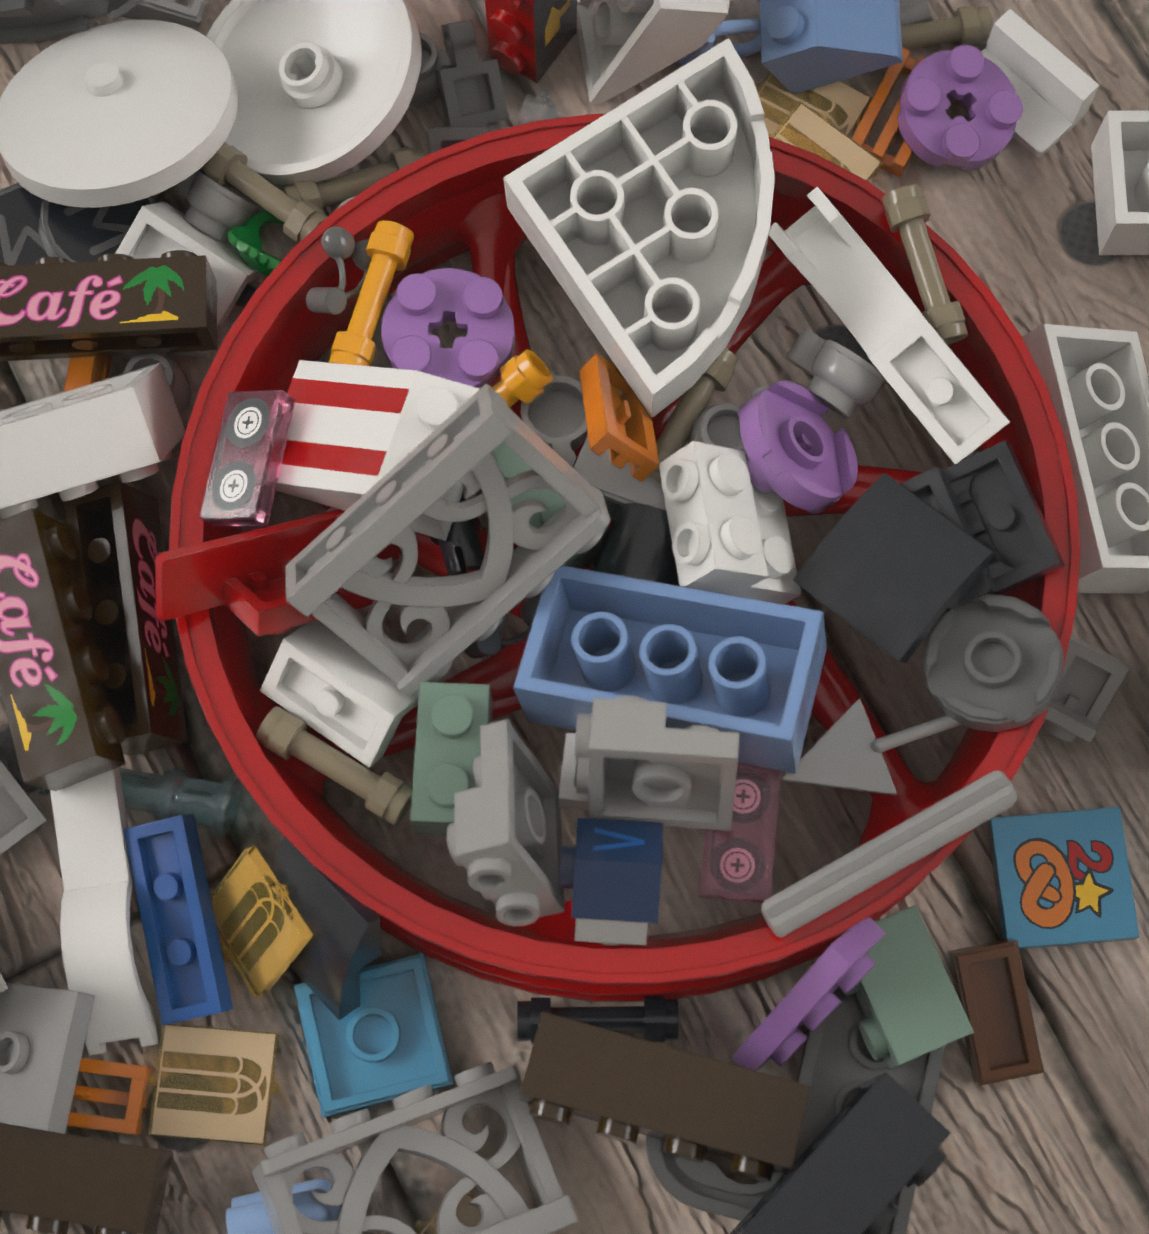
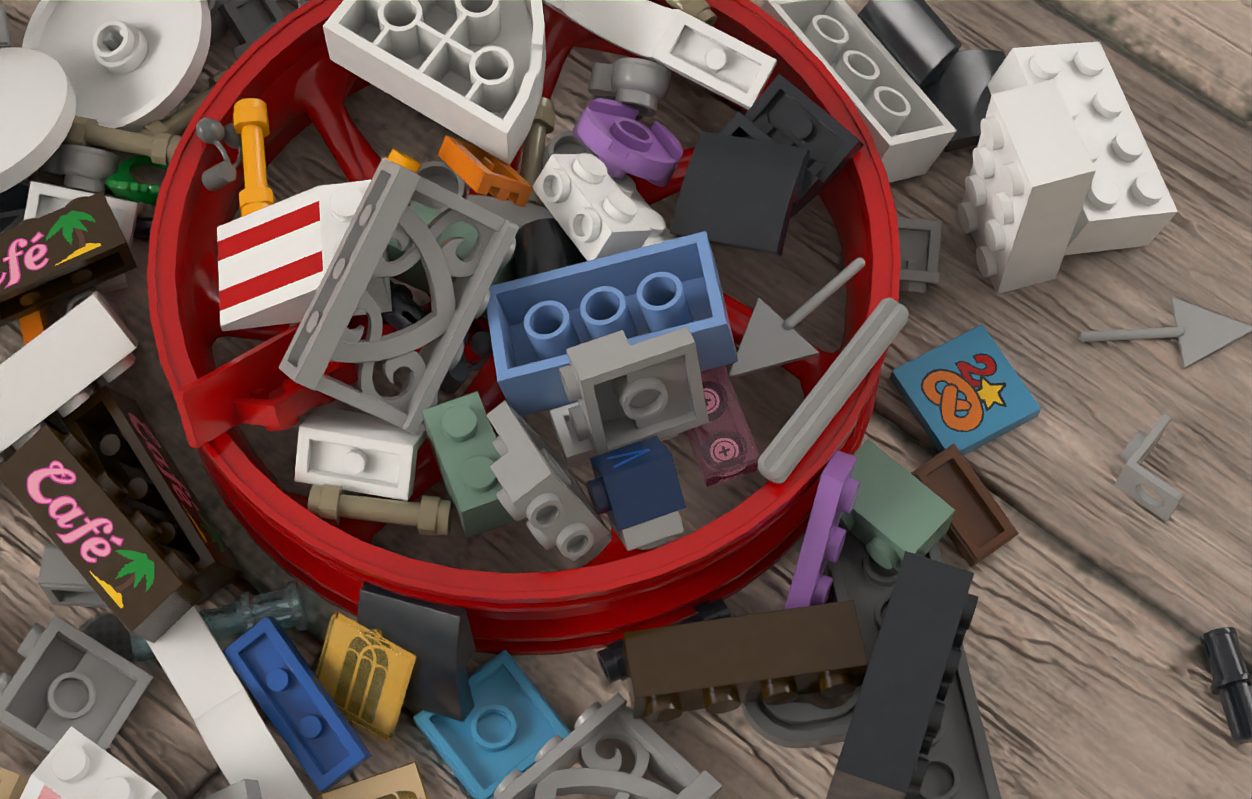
camera: 25 degrees left, 10 degrees down
(247, 458) = (209, 310): clear pink tile -> none
(449, 296) = (316, 137): medium lavender plate -> none
(992, 663) = (844, 231): dark grey tile -> none

